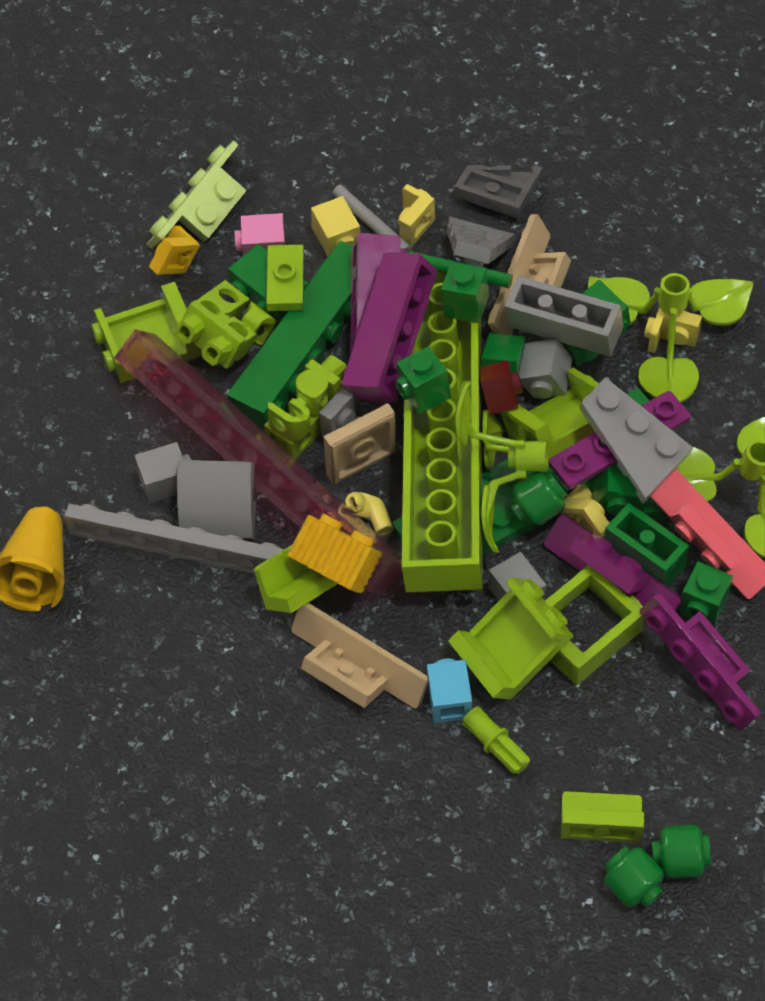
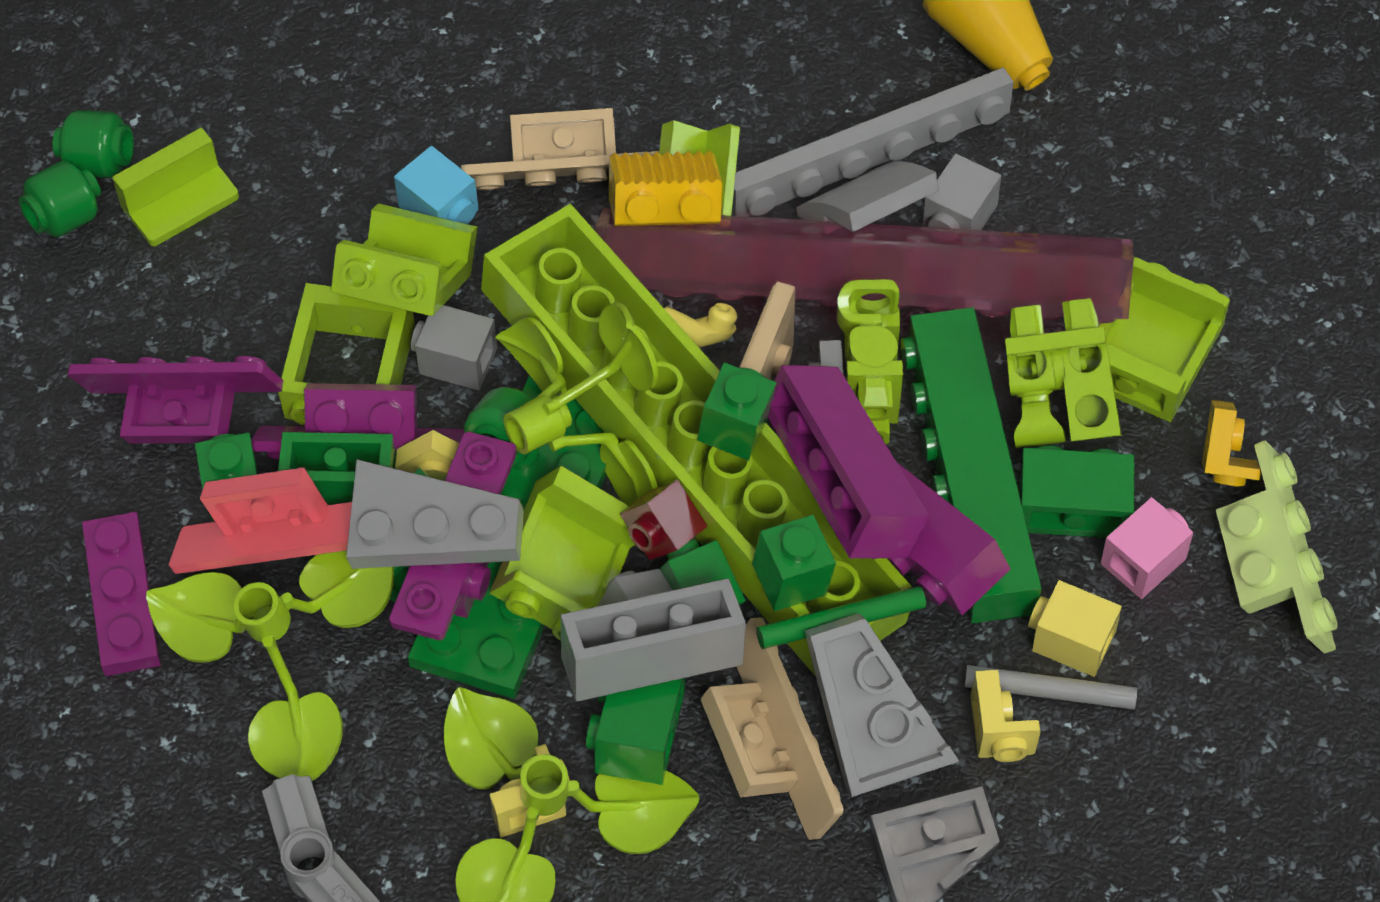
camera: 140 degrees right, 0 degrees up
(285, 277) = (1050, 480): lime plate -> none
(495, 740) = (345, 187): lime axle -> none

